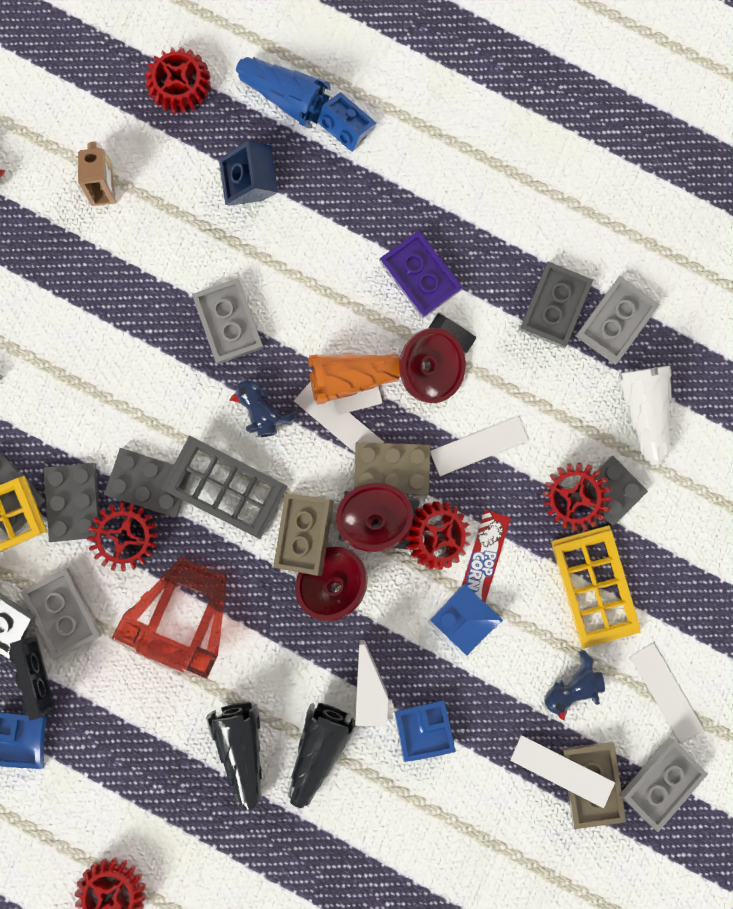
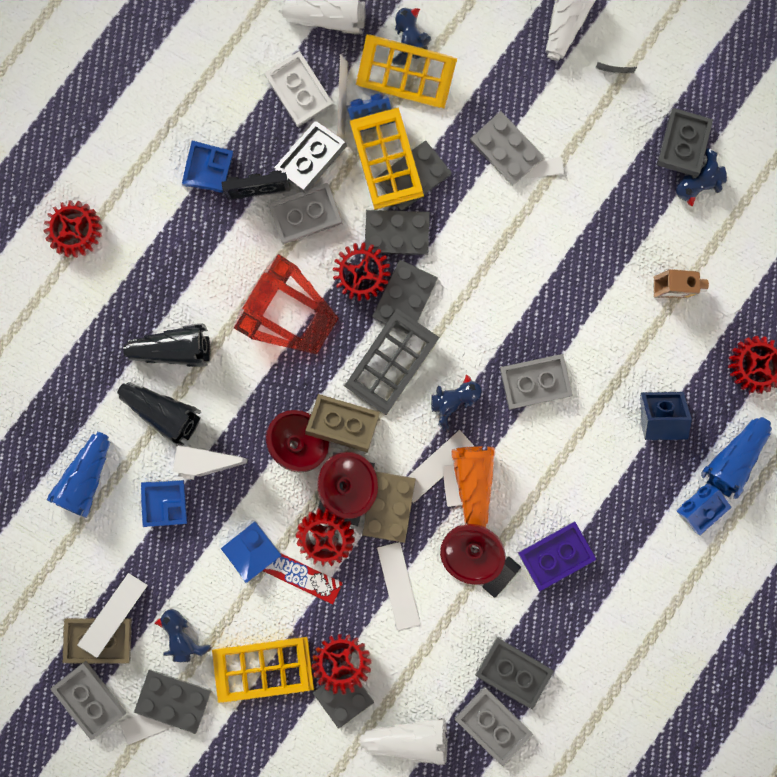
camera: 100 degrees right, 0 degrees up
(408, 834) = (81, 477): none -> blue cone
(647, 685) = (172, 701): none -> dark grey plate

